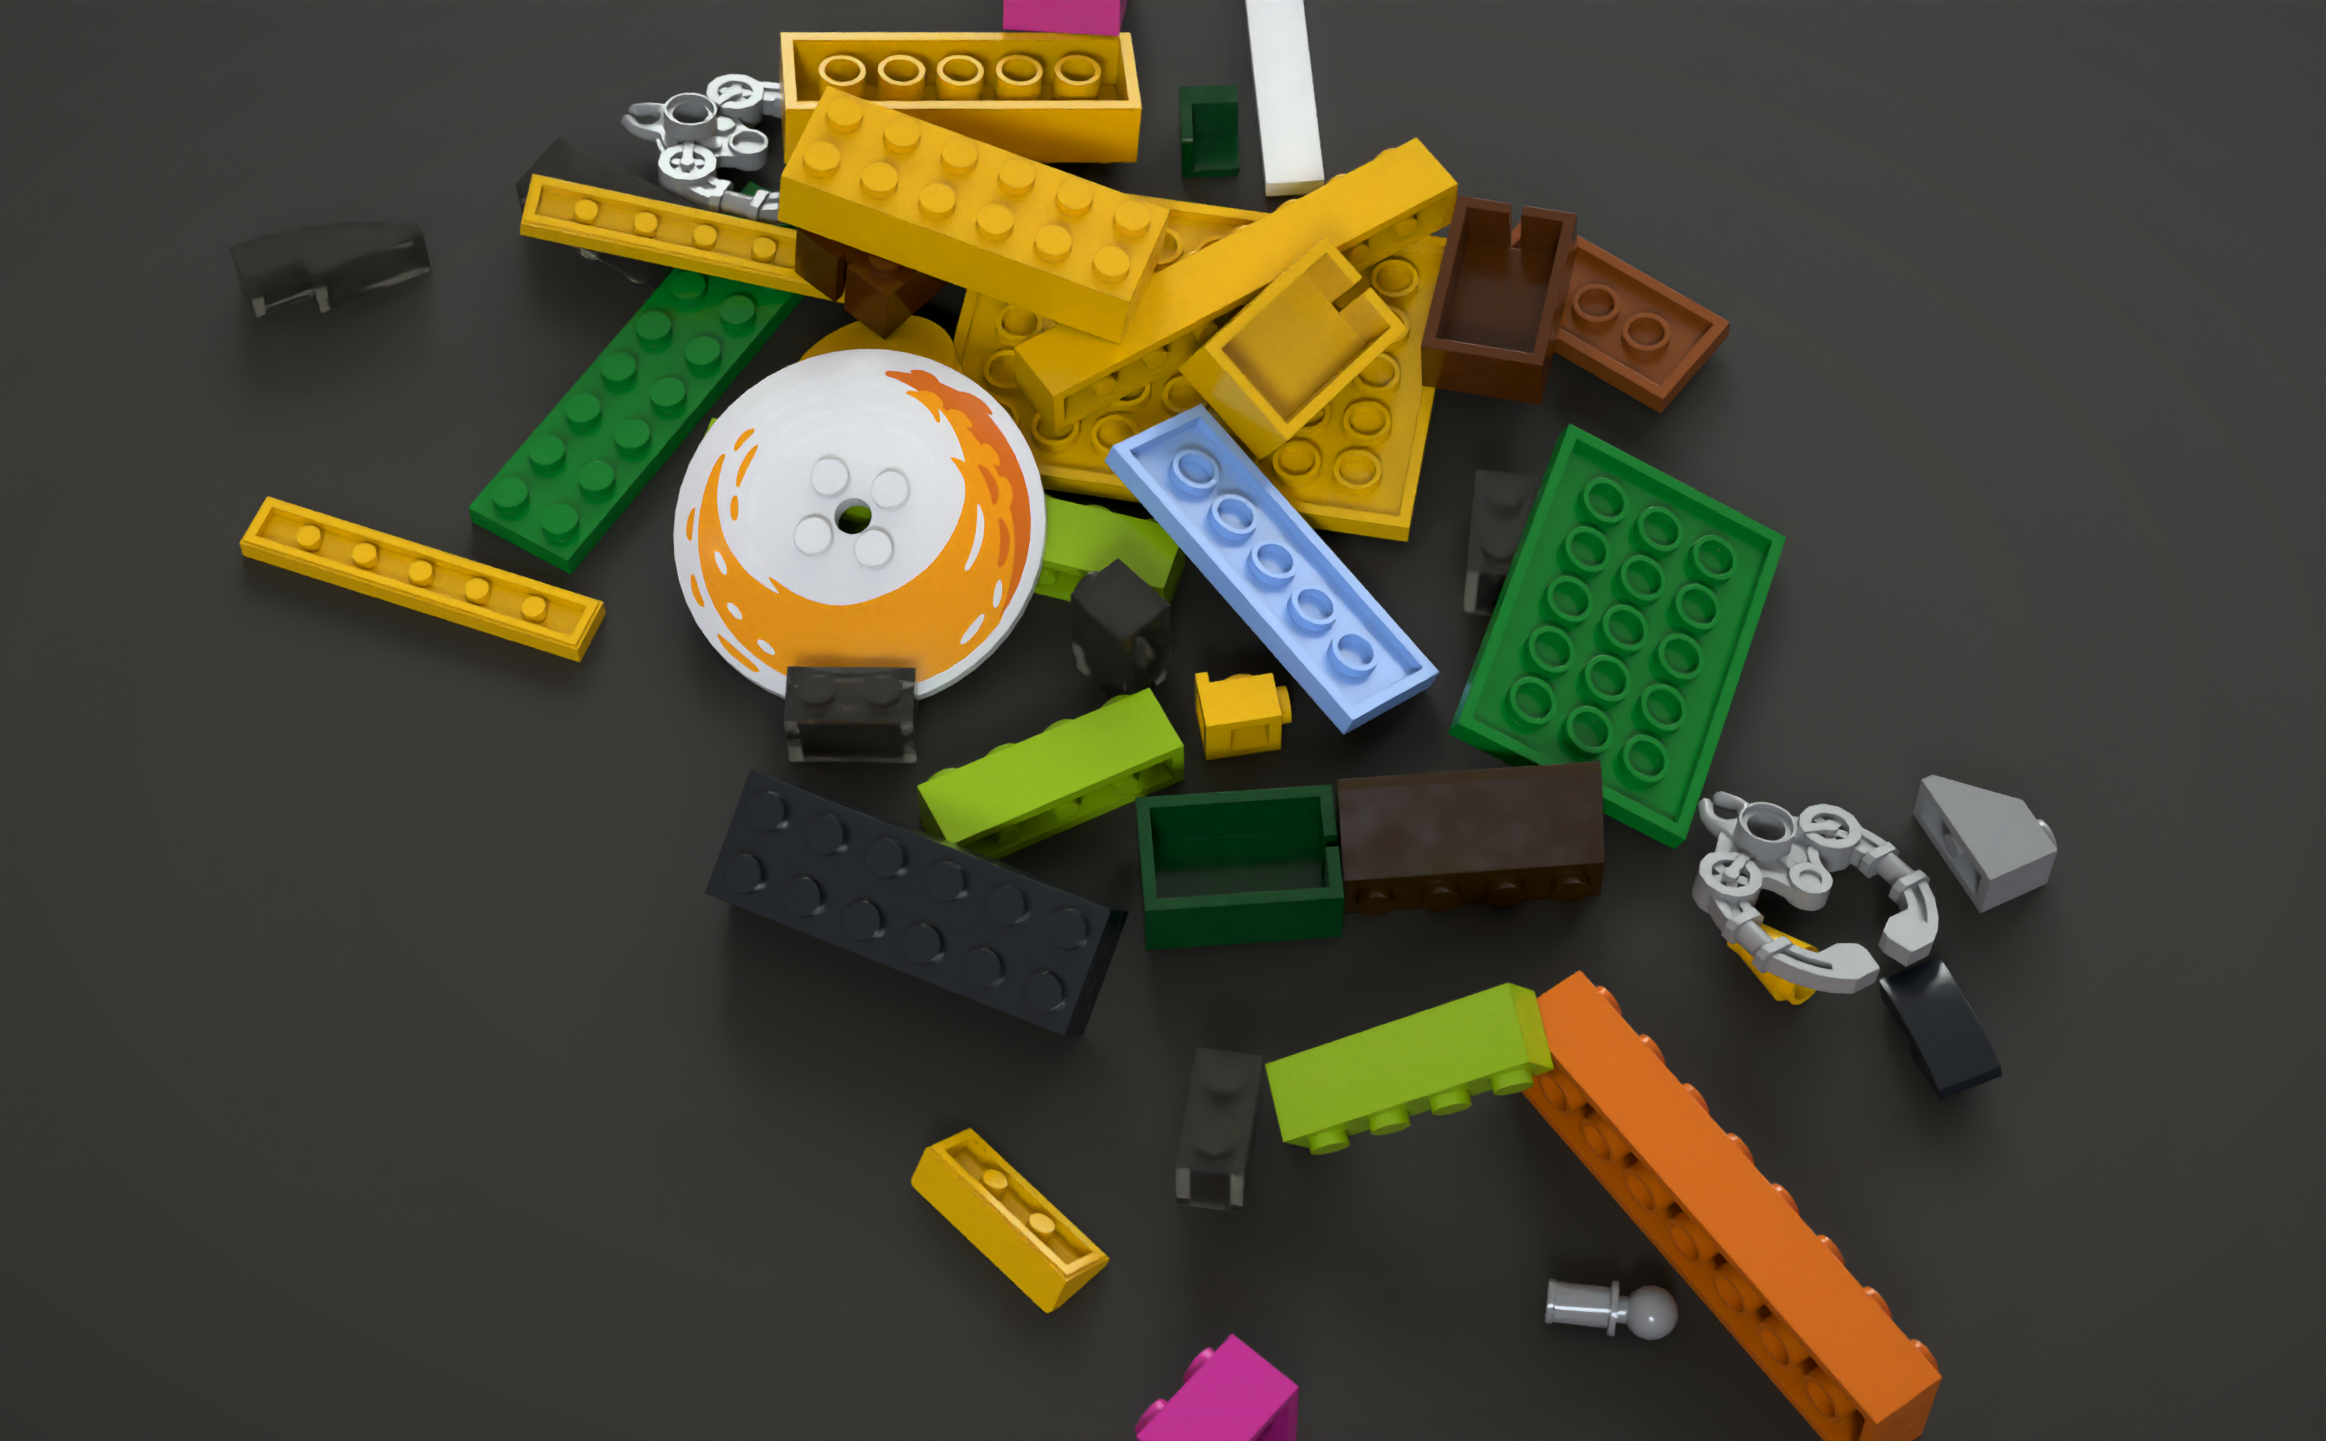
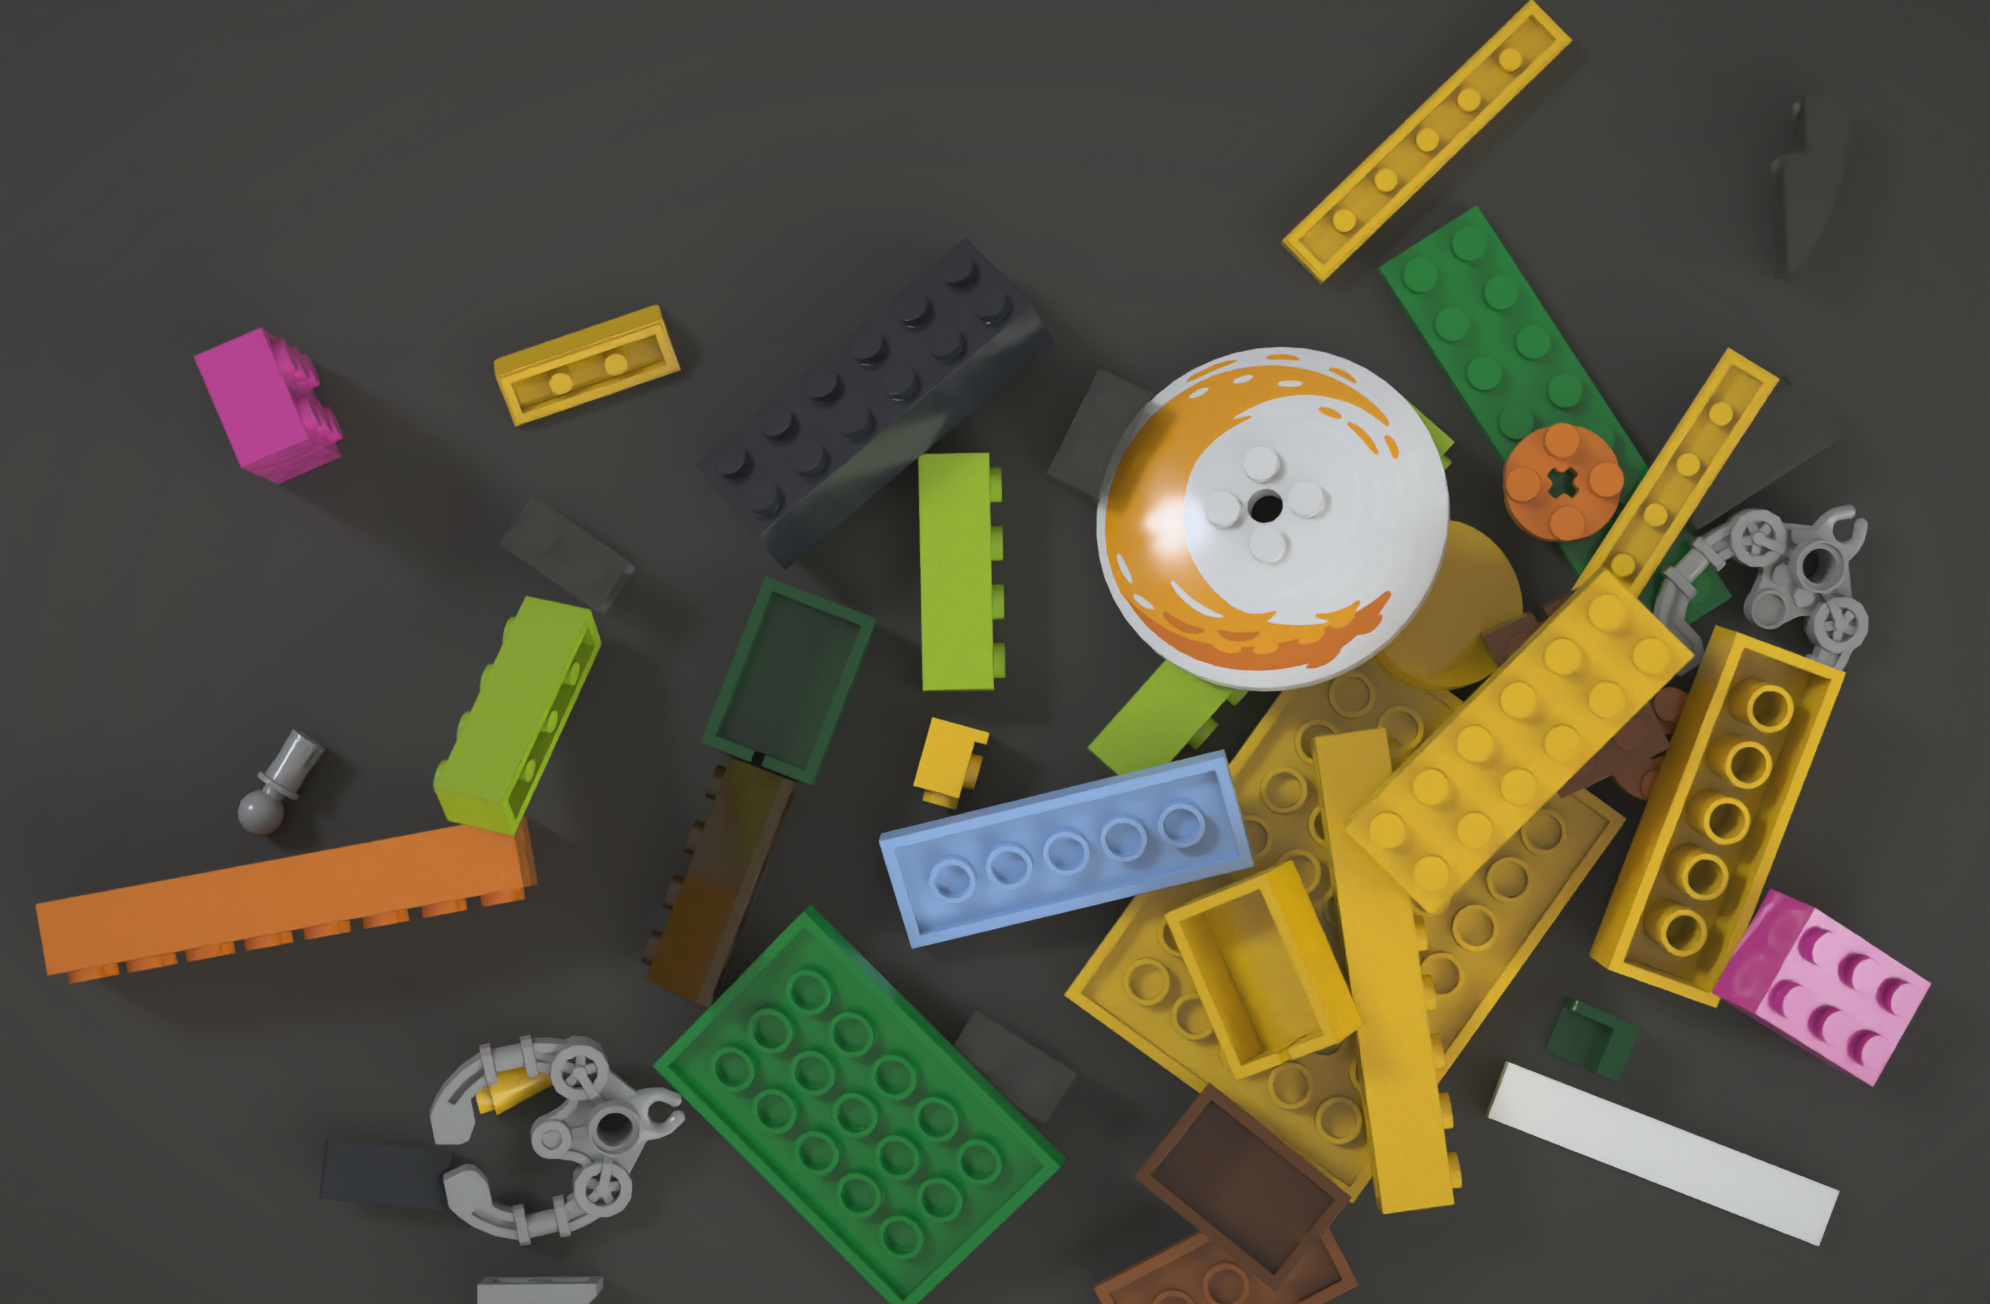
camera: 115 degrees right, 30 degrees up
(703, 300) = (1596, 483): none -> orange plate
(1120, 631) = (1061, 688): clear smoke brick -> none

